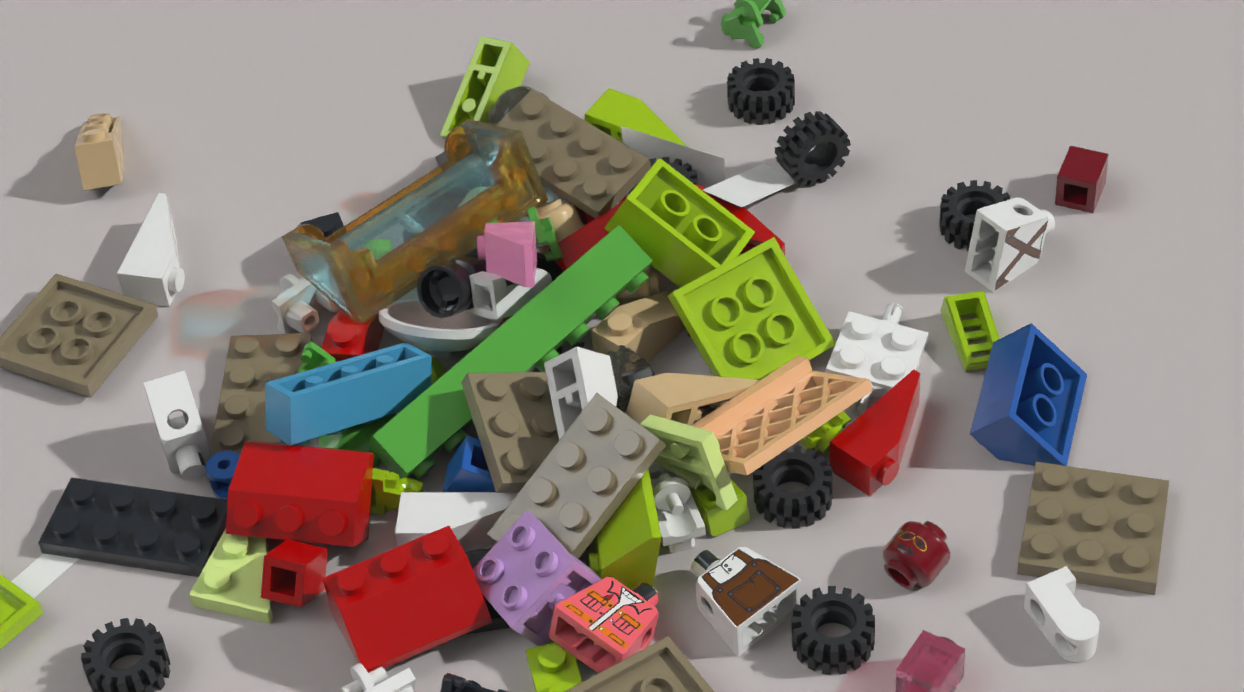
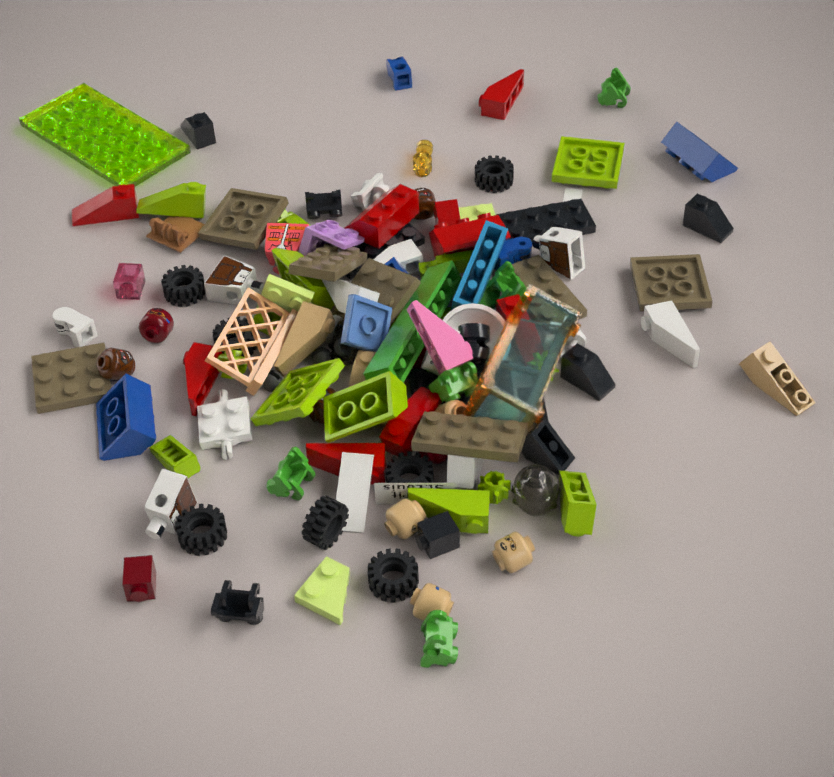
camera: 150 degrees right, 0 degrees up
(307, 641) = (426, 203): none -> reddish brown head
(600, 339) = (365, 323): none -> medium blue tile
(604, 64) = (513, 552): none -> tan head
(681, 108) = (438, 535): none -> black brick
(708, 133) = (403, 518): none -> tan head
(736, 42) = (430, 599): none -> tan head
(823, 234) = (290, 475): none -> bright green piece
(855, 105) = (326, 590): none -> yellowish green wing
(978, 115) = (238, 604): none -> black piece
(1013, 490) = (115, 363): none -> reddish brown head

